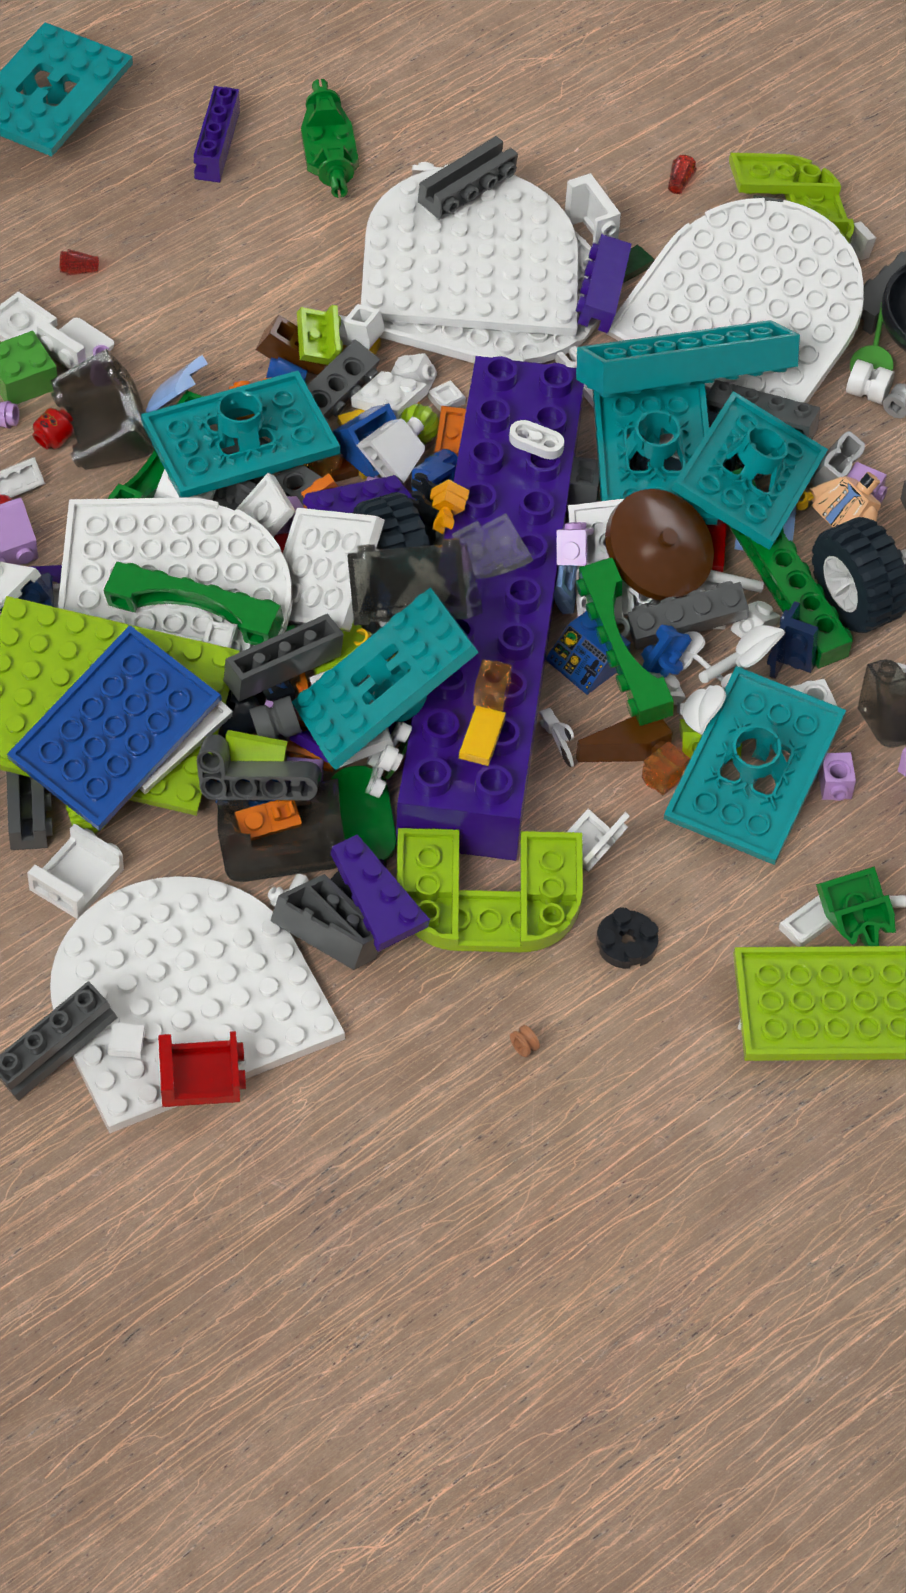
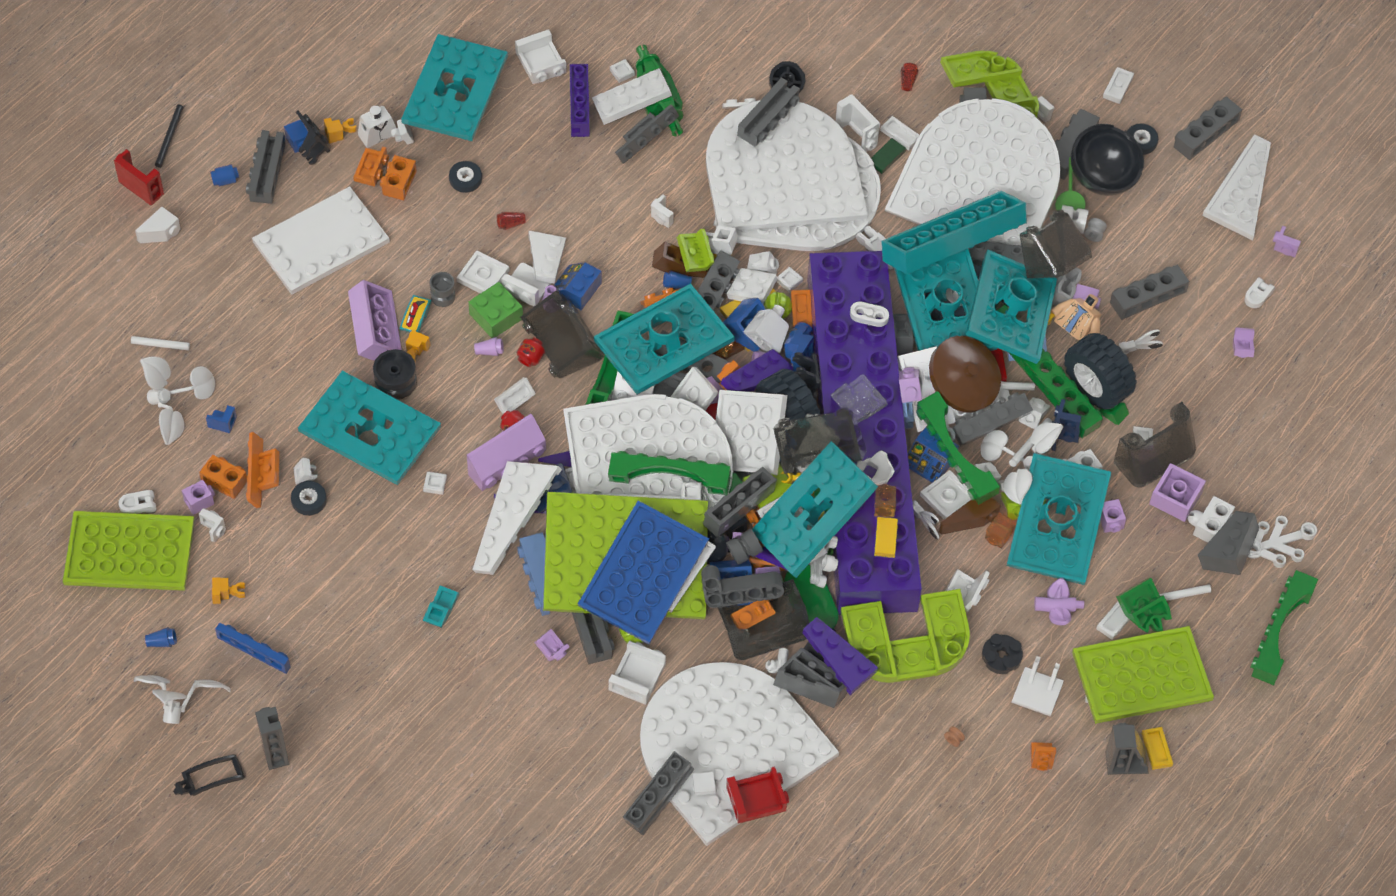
camera: 10 degrees left, 5 degrees up
(35, 211) = (466, 184): none -> black bush
(114, 313) = (546, 255): none -> white wing
(150, 356) = (579, 283): none -> blue slope
(175, 385) = (606, 306): light blue slope -> none
(180, 76) = (540, 57): none -> white panel
(255, 748) = (736, 568): lime tile -> none
(287, 110) = (622, 71): none -> white tile
(288, 137) = (631, 96): none -> white plate
(289, 284) = (660, 212): none -> white bracket
(295, 184) = (644, 132): none -> dark grey bracket
(449, 500) = (822, 369): light orange piece -> none
(501, 636) = (883, 466): none -> white helmet
(514, 137) = (789, 71): none -> black cylinder
(596, 706) = (946, 494): none -> white plate
(604, 282) = (878, 175): dark purple brick -> none
(647, 236) = (900, 132): none -> white plate
(651, 1092) = (1042, 755): none -> orange bracket
(667, 652) = (985, 451): blue hips -> none
(668, 998) = (1038, 690): none -> white plate
(729, 881) = (1058, 603): none -> lavender plant
(781, 1104) = (1125, 751): none -> dark grey wedge
(828, 401) = (1054, 248): none -> clear smoke windscreen
(832, 1113) = (1157, 748): none -> yellow tile
(876, 641) = (1116, 414): none -> green slope

